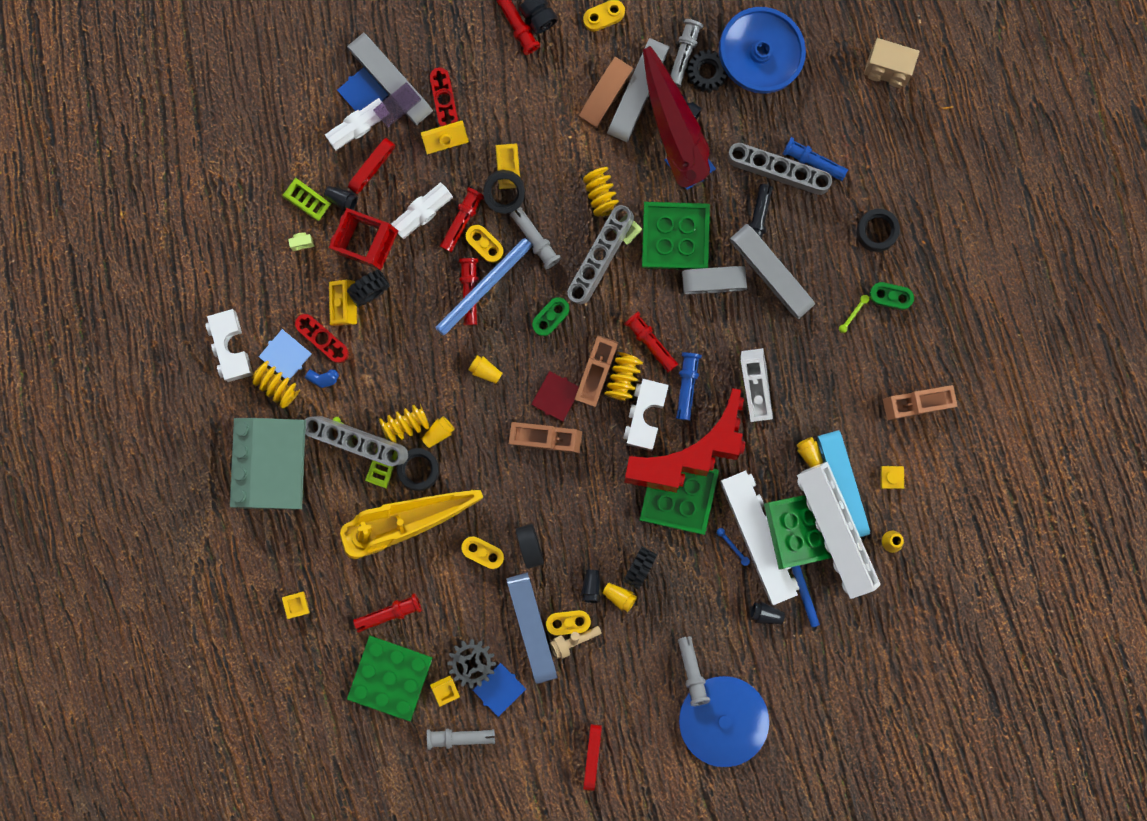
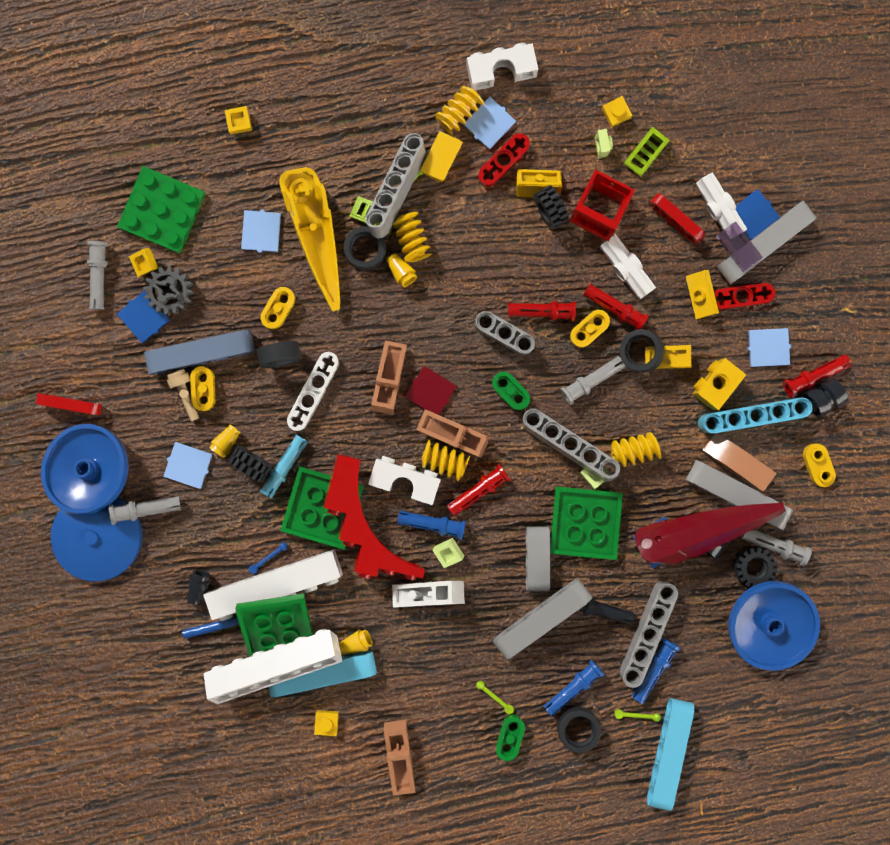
camera: 90 degrees right, 5 degrees up
(267, 231) = (616, 111): none -> yellow plate
(267, 463) = (378, 96): sand green slope -> none
(322, 400) = (441, 157): none -> yellow slope
(323, 380) = (461, 159): blue arm -> none
(341, 198) = (645, 187): black cone -> none
(398, 610) = (226, 219): red pin -> none
(405, 576) = (261, 231): none -> light blue piece
(484, 286) = (545, 324): medium blue axle -> none
(484, 369) = (461, 321): yellow cone -> none
(492, 69) = (769, 347): none -> light blue piece
(498, 316) = (497, 324): none -> light grey beam
(527, 105) = (730, 379): none -> yellow brick
(560, 69) = (764, 411): none -> medium azure beam
(565, 509) = (316, 393): none -> white beam
(591, 588) = (236, 414): black cone -> none
(635, 533) = (281, 470): none -> medium azure pin
(646, 634) = (188, 465): none -> light blue piece
(656, 734) = (84, 469): none -> blue dish
(714, 367) = (448, 553): none -> yellowish green plate
(831, 230) = (581, 682): none -> blue pin
(860, 192) = (620, 714): none -> lime hinge
(888, 544) = (263, 715): yellow cone -> none
(891, 63) = (752, 759): tan brick -> none
(895, 140) = (670, 754): none -> medium azure beam

